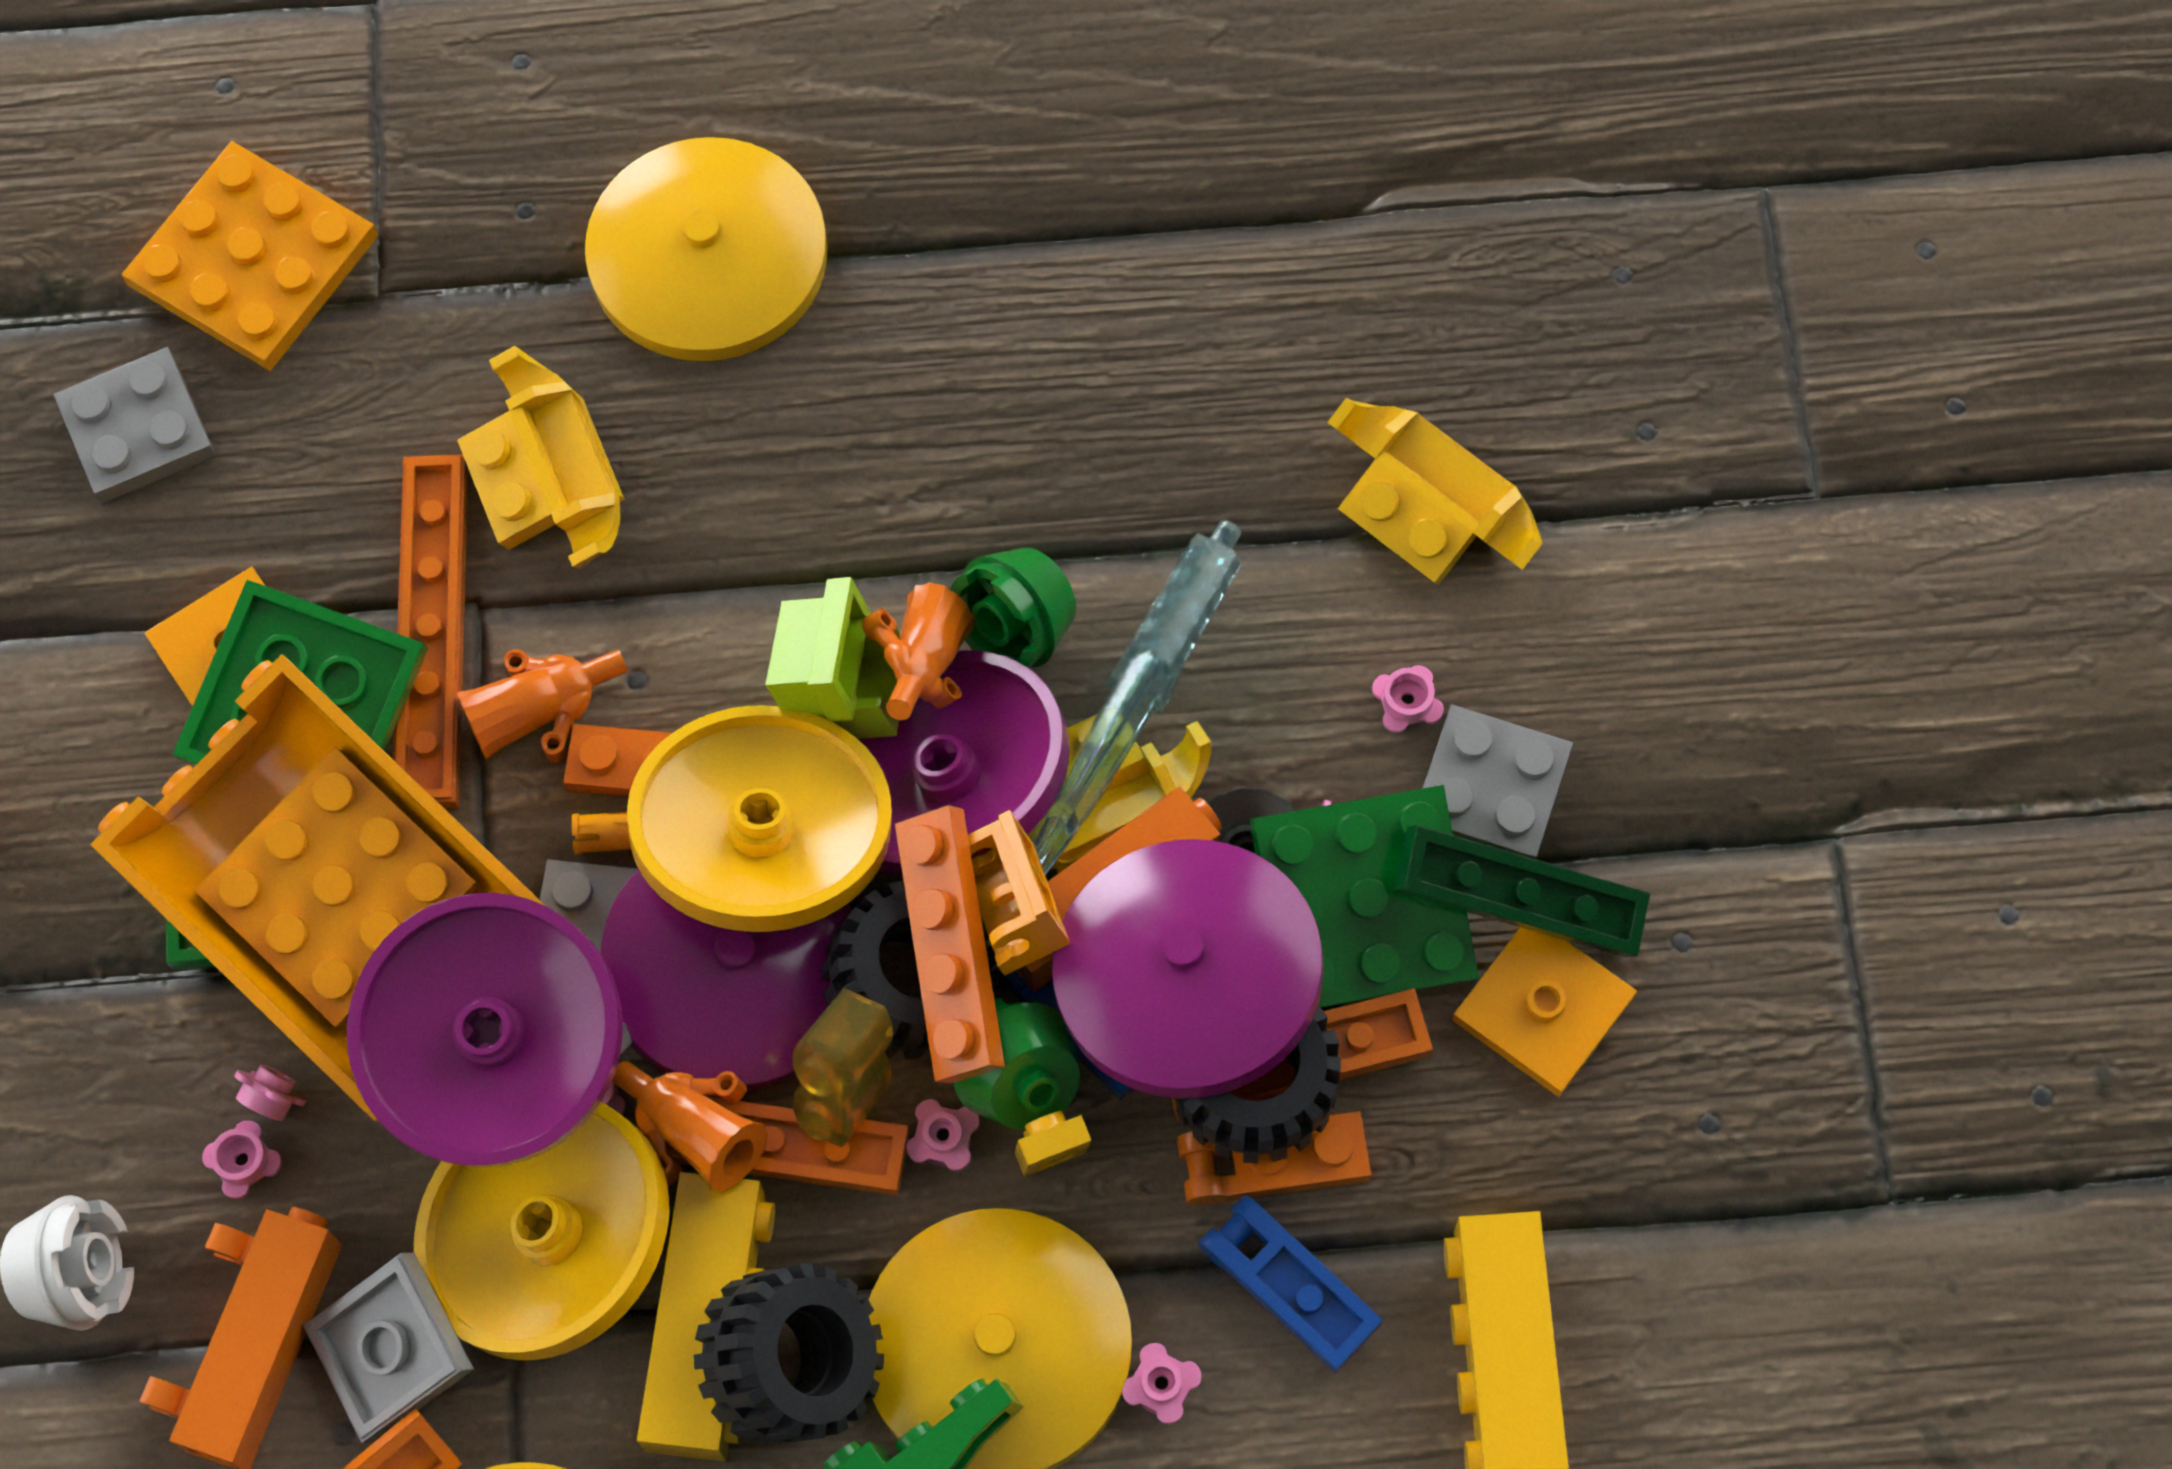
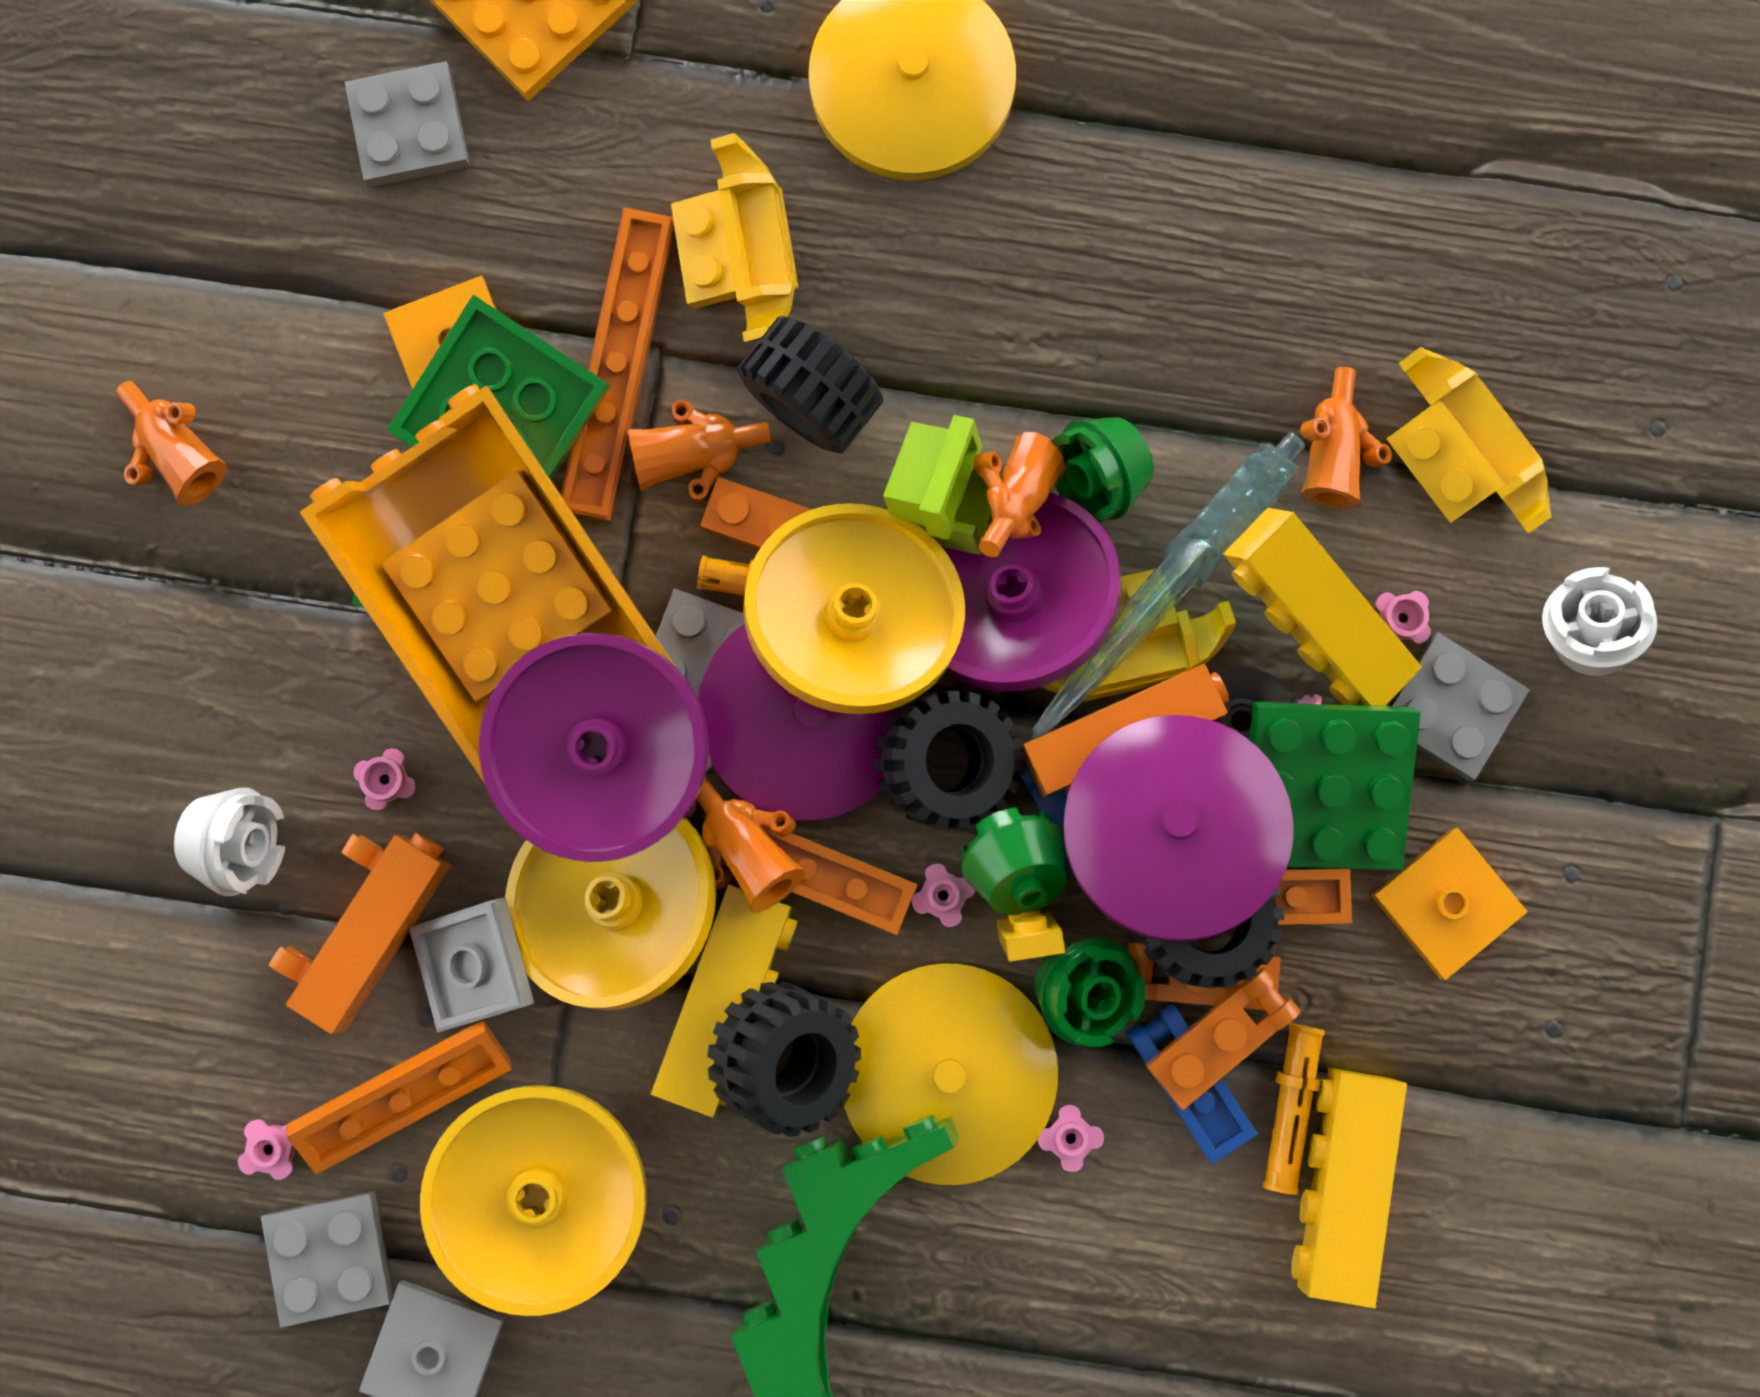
camera: 10 degrees right, 15 degrees up
(268, 1092) = (414, 731): bright pink plate -> none
(658, 590) = (810, 384): none -> black tyre
(842, 1067) = (876, 836): clear yellow brick -> none
(949, 945) = (986, 760): orange plate -> none
(1014, 895) = (1047, 730): light orange hinge -> none
(1139, 1194) = (1089, 991): none -> green cone
(1283, 537) = (1335, 447): none -> orange piece
(1301, 700) = (1320, 610): none -> yellow brick
(1308, 1216) = (1221, 1039): none -> orange plate
(1421, 1299) = (1293, 1108): none -> light orange pin
(1521, 891) = (1459, 814): dark green plate -> none
(1626, 646) = (1599, 621): none -> white cone

